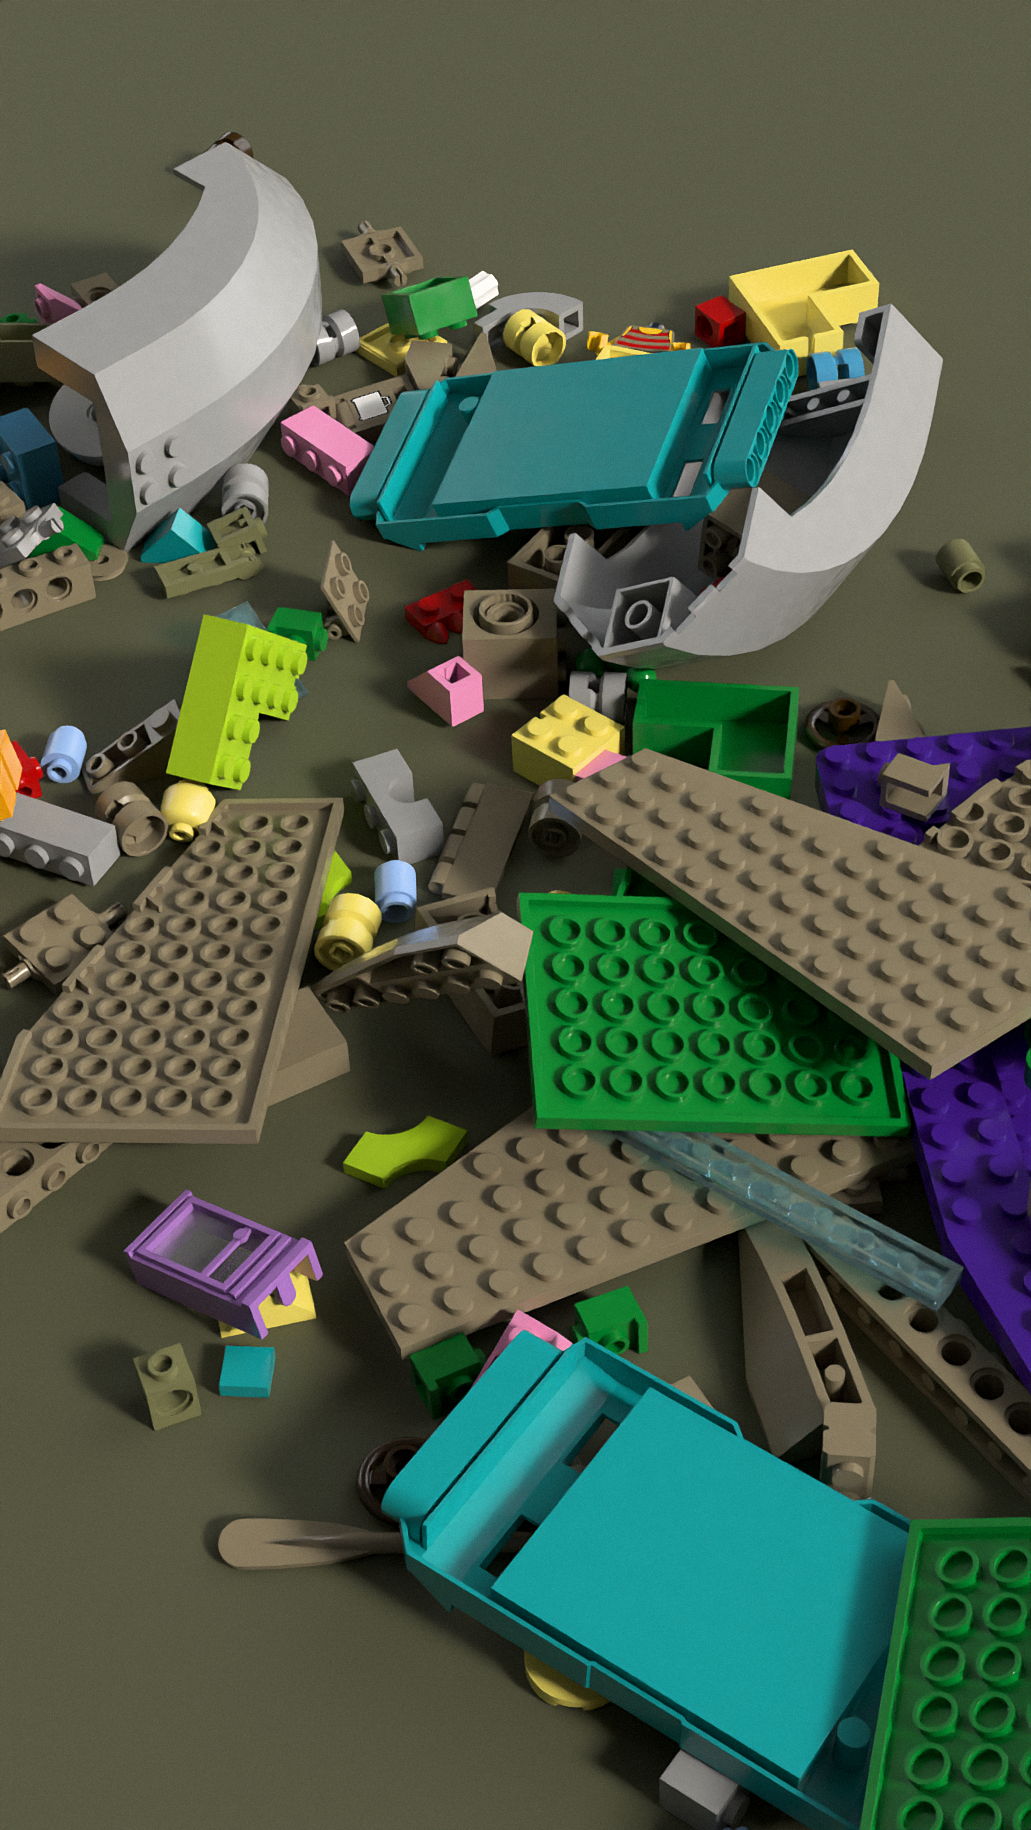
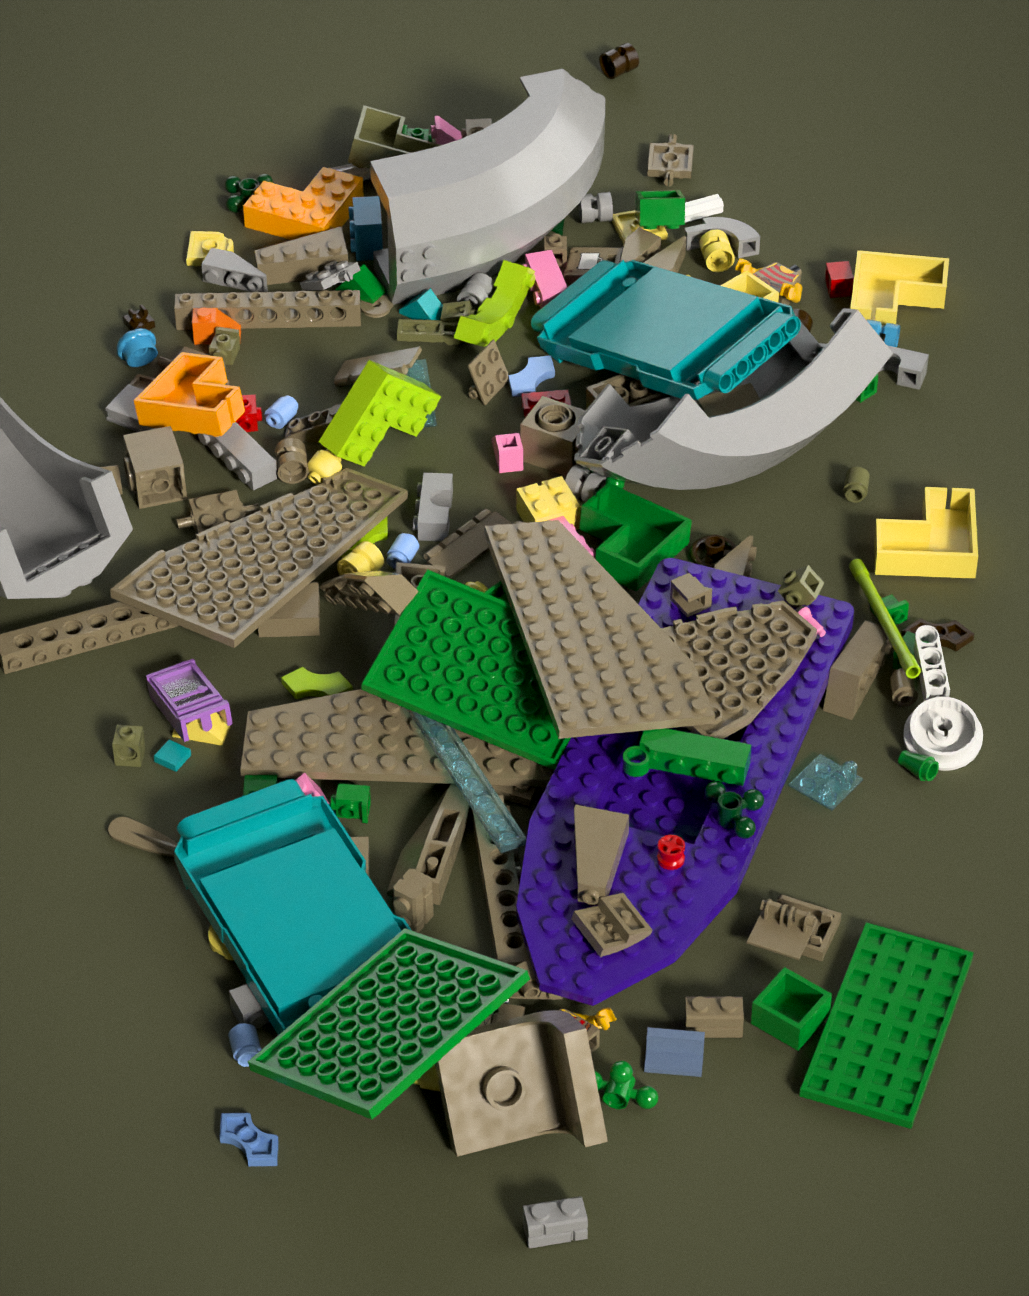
camera: 25 degrees right, 0 degrees up
(177, 636) = (396, 360): none -> dark tan windscreen
(291, 510) = (500, 311): none -> lime brick
(301, 627) = (450, 387): green brick -> none
(400, 572) = (532, 375): none -> light blue tile

